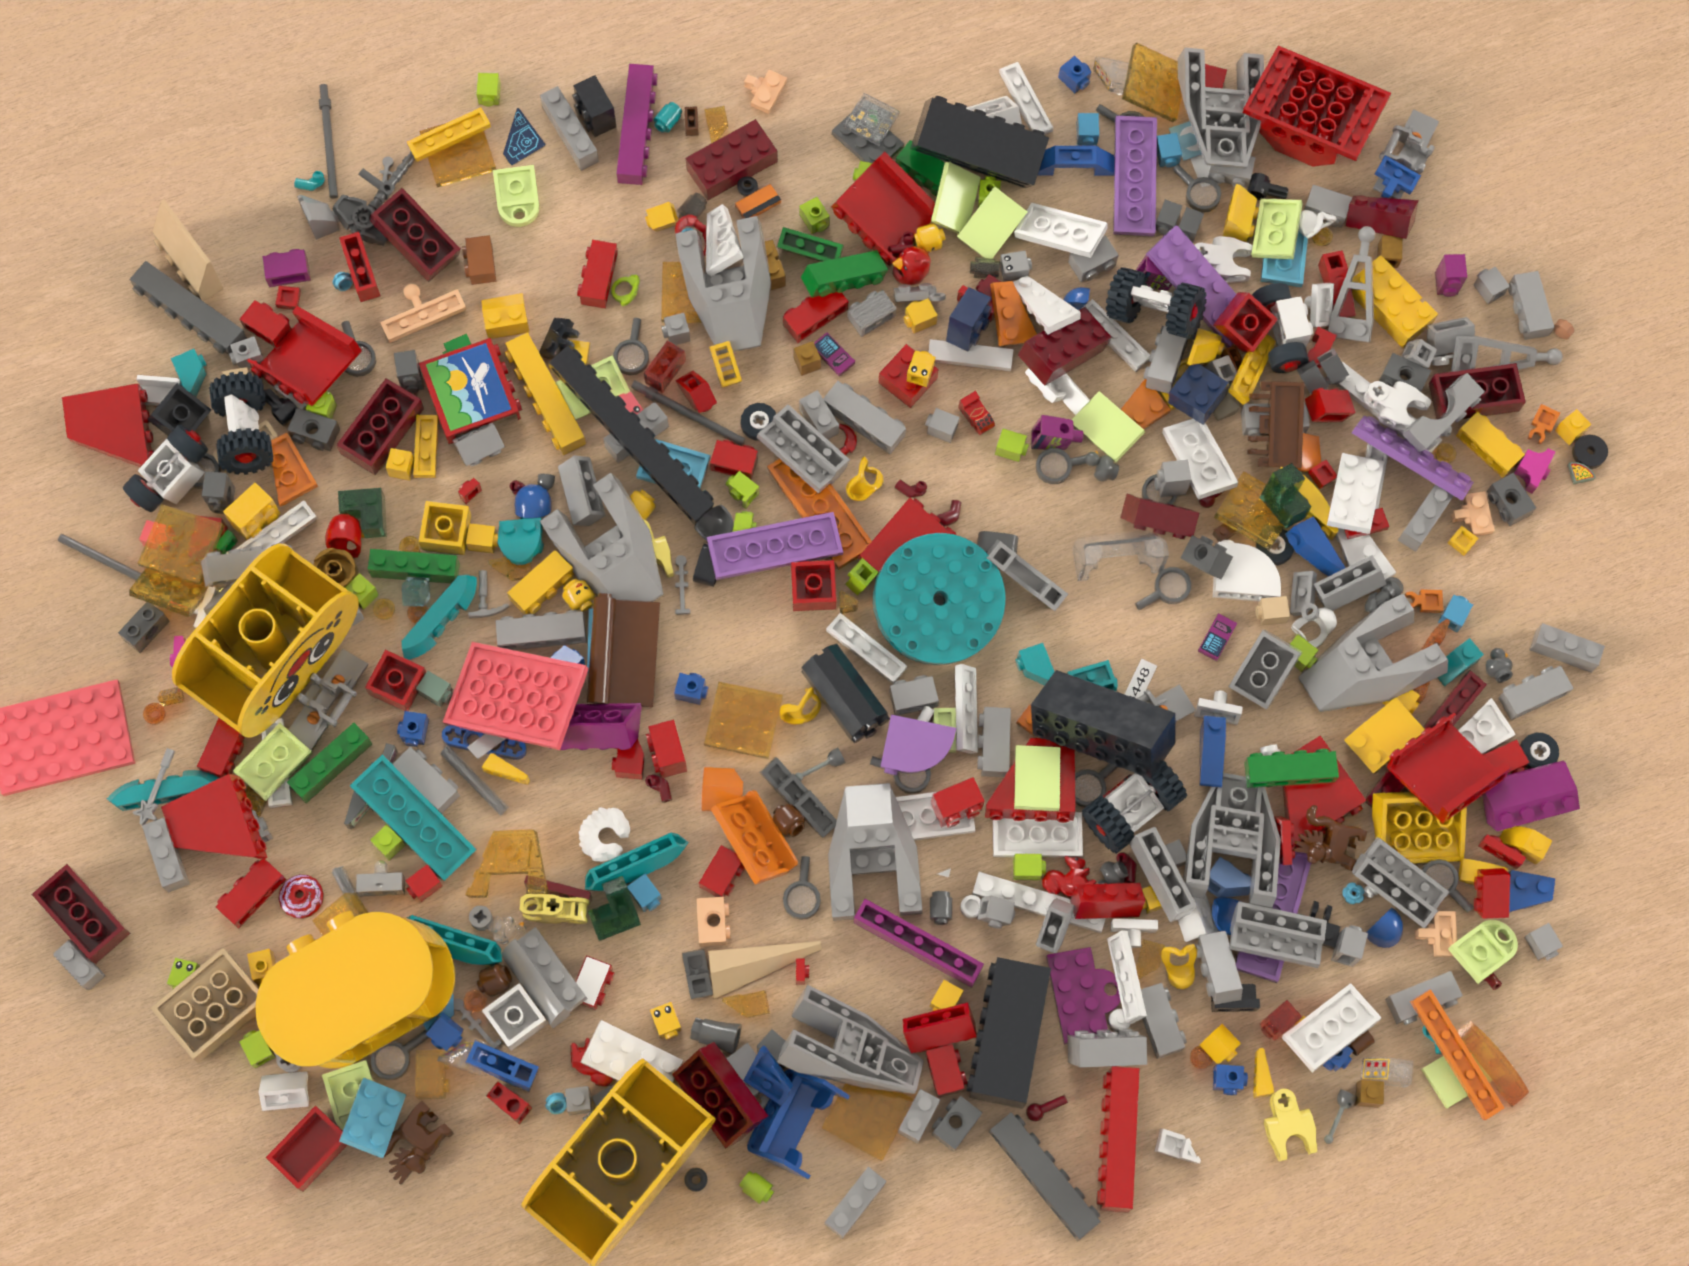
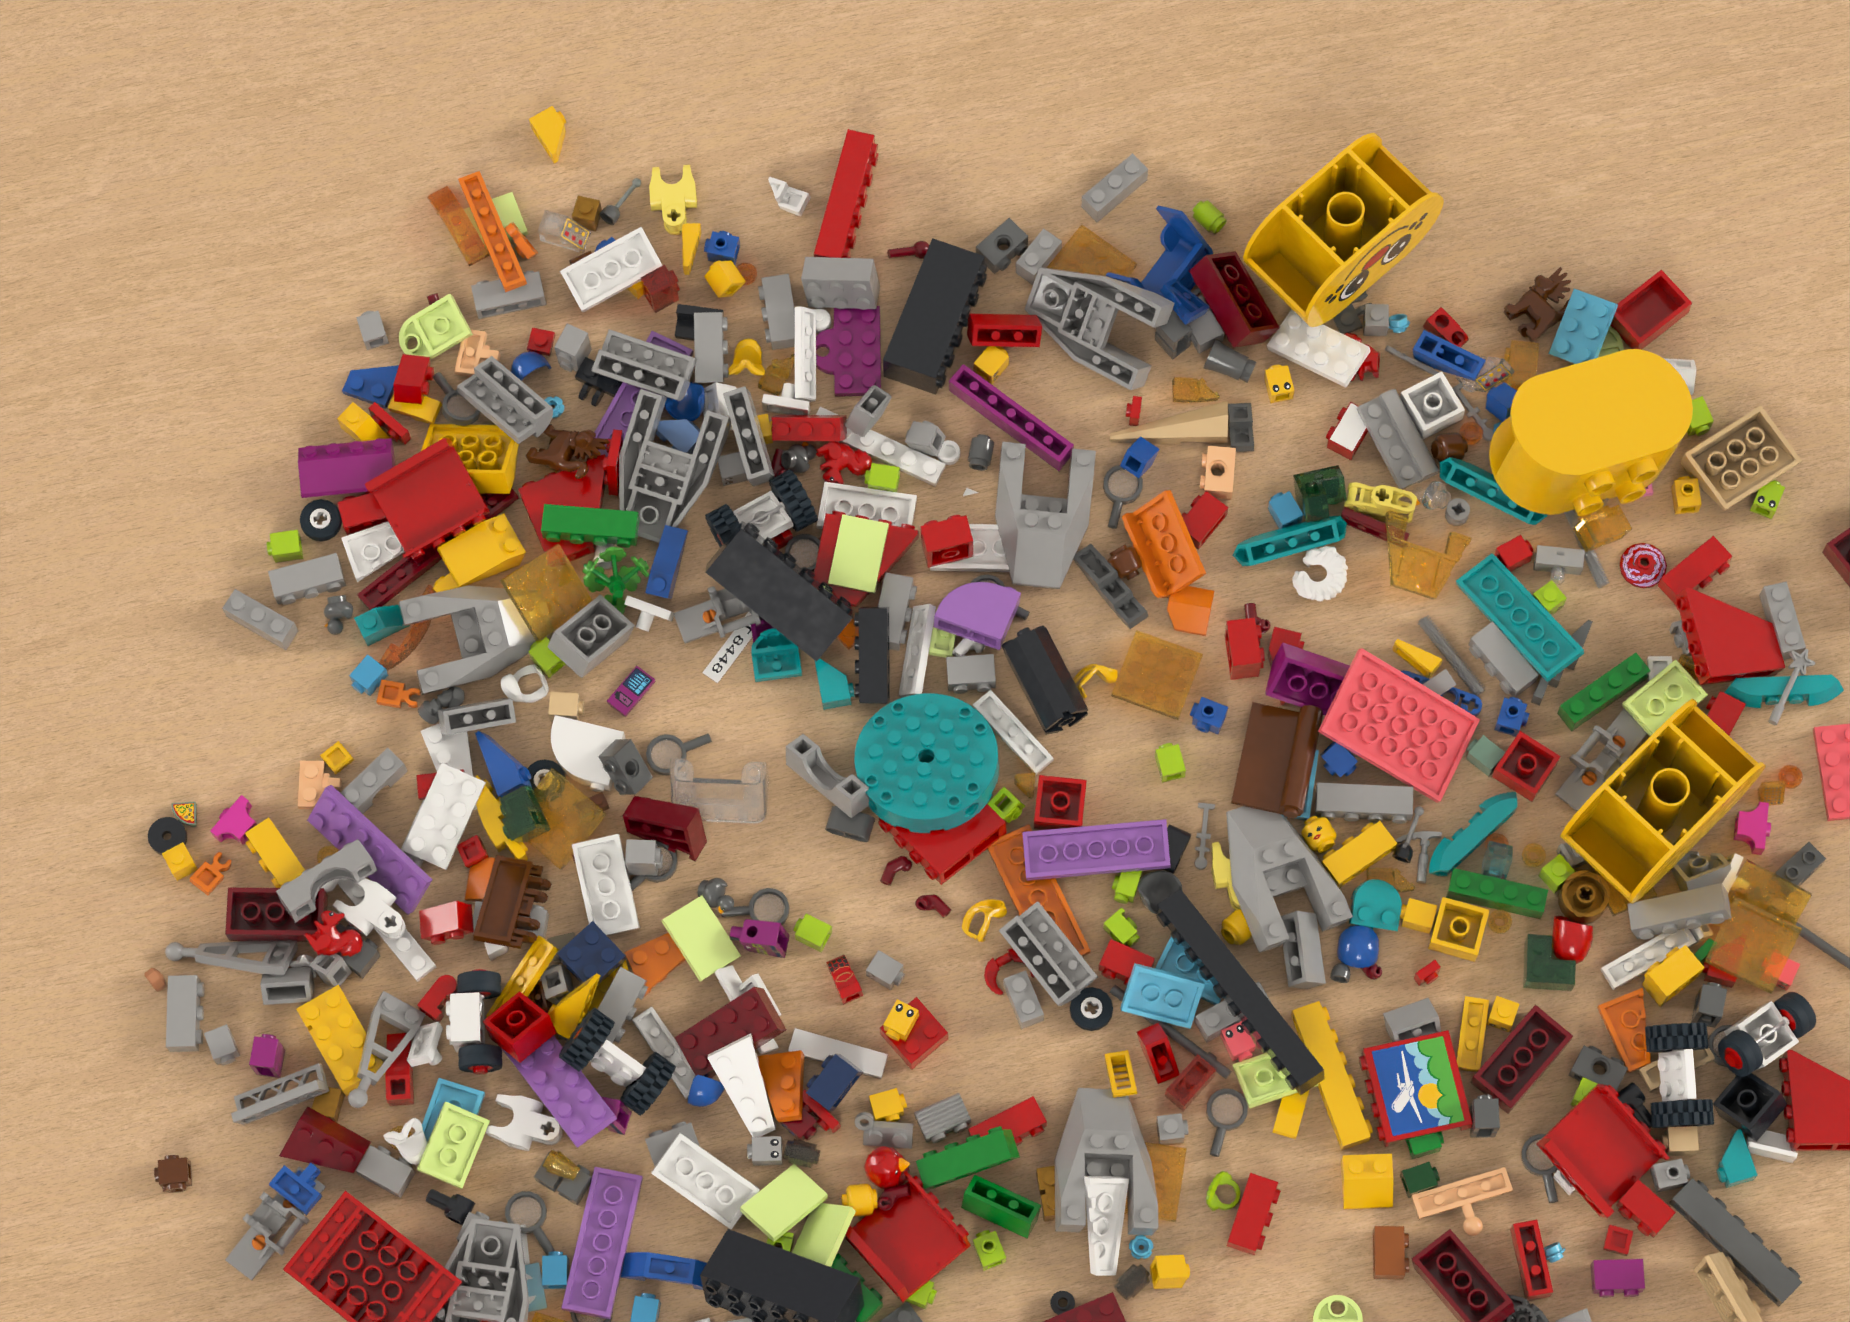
camera: 165 degrees left, 0 degrees up
(460, 320) = (1419, 1178): none -> dark green brick
(500, 594) = (1404, 851): none -> hinge
(557, 337) = (1310, 1141): black hinge -> none
(557, 1073) = (1413, 361): none -> light grey piece
(691, 221) = (1137, 1258): red piece -> none
(698, 431) = (1162, 996): none -> medium azure plate
(720, 641) = (1170, 762): none -> lime brick
(758, 202) = (1052, 1281): orange tile -> none
(789, 923) = (1139, 457): none -> blue brick
(807, 358) = (1026, 1071): pearl gold brick -> none
(834, 354) = (994, 1078): tile -> none
(834, 758) = (1066, 620): hinge -> none
(864, 417) = (972, 993): light grey brick -> none
(945, 1070) = (1004, 292): red brick -> none
(1005, 690) = (873, 655): none -> black brick
(1044, 1176) = (923, 185): dark grey brick -> none
(1184, 219) = (560, 1165): none -> clear yellow cone
(1240, 215) = (492, 1170): yellow slope -> none
(1253, 717) = (625, 578): none -> bright green plant
(1304, 595) = (527, 718): light grey hinge -> none
(1315, 703) = (546, 592): none -> clear yellow plate
(1332, 366) = (453, 955): dark grey piece -> none
(1380, 958) = (541, 341): none -> red plate
(1423, 1050) = (523, 247): none -> orange plate
(1426, 1176) = (550, 131): none -> yellow slope
(1427, 243) = (282, 1099): none -> light grey fence
(1427, 367) = (328, 939): none -> red animal
(1500, 180) = (173, 1173): none -> reddish brown brick
(1511, 488) = (266, 778): dark grey brick -> none
(1564, 720) = (285, 546): none -> lime brick

